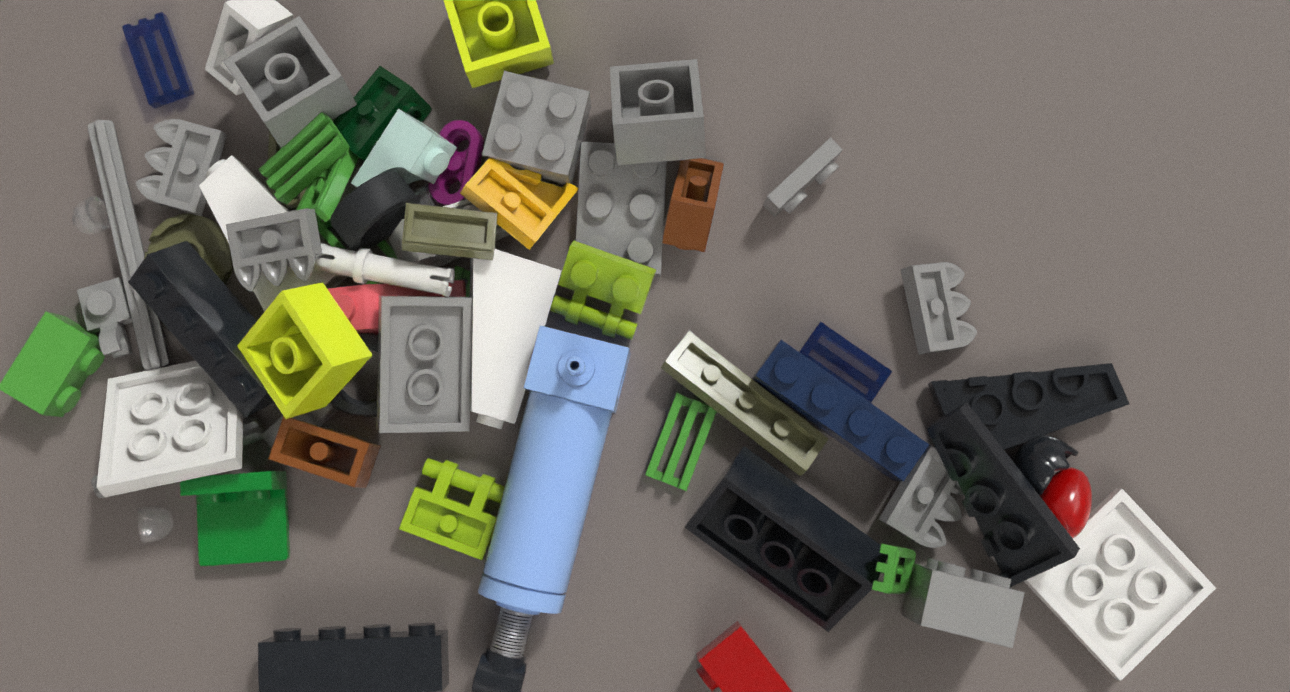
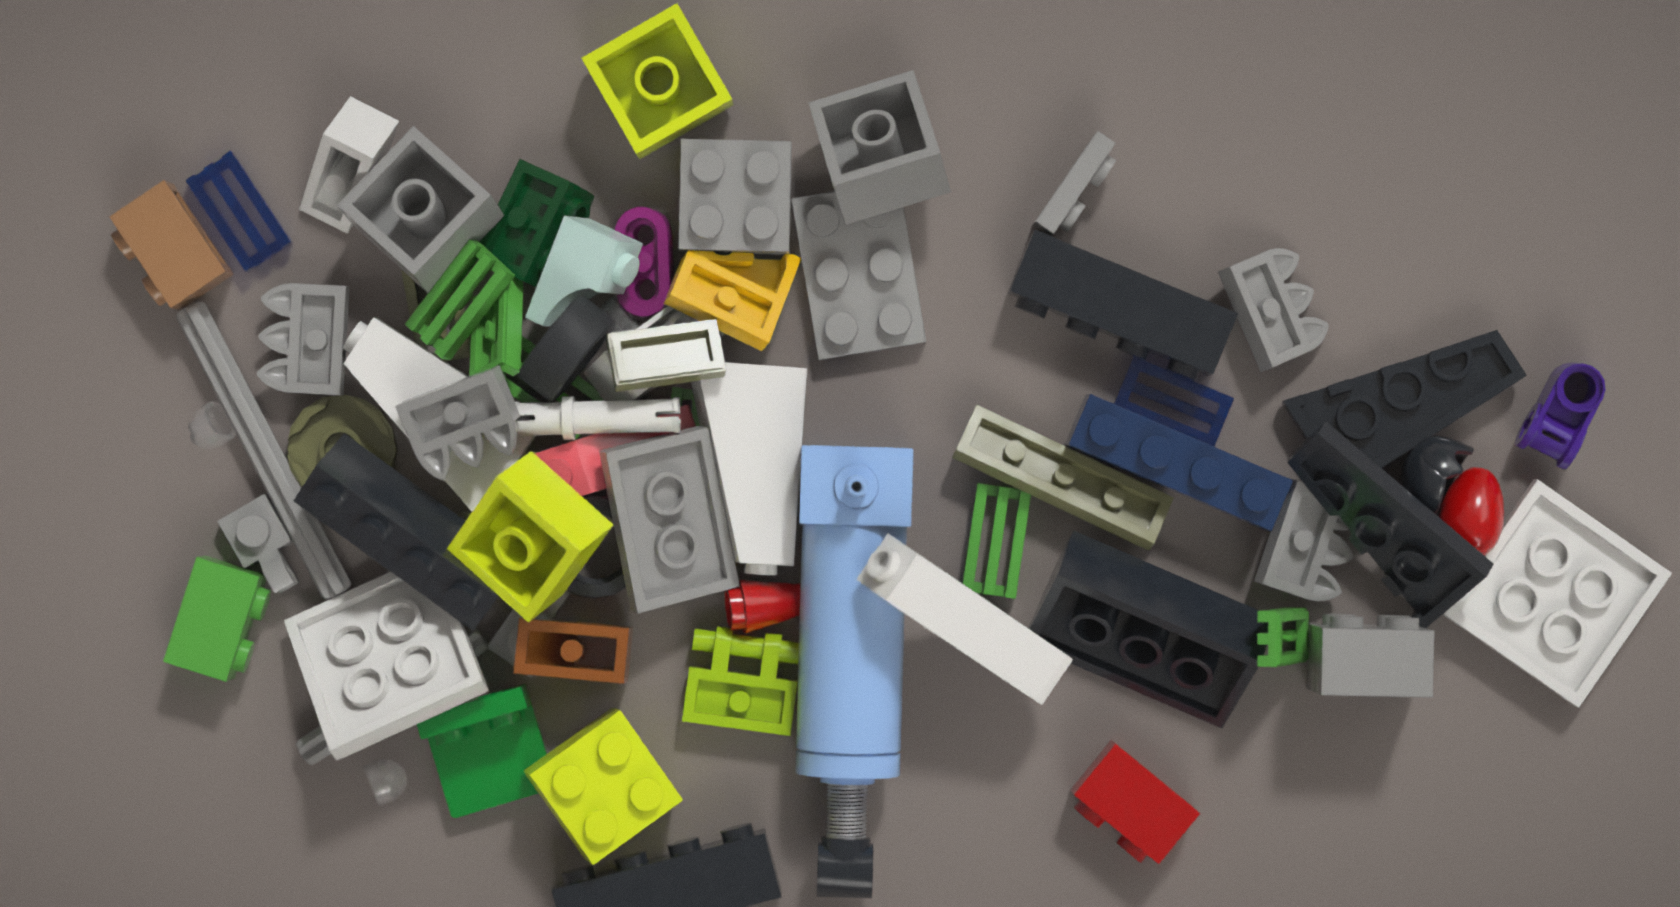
camera: 10 degrees left, 5 degrees up
(95, 71) = (169, 246): none -> medium nougat brick
(320, 568) = (603, 785): none -> neon yellow brick
(483, 450) = (761, 604): none -> red cone
(605, 278) = (862, 364): lime plate -> none
(639, 495) = (964, 619): none -> white slope
(693, 204) = (948, 248): dark orange slope -> none
(820, 278) = (1121, 304): none -> black brick
(1144, 445) = (1561, 416): none -> dark purple piece

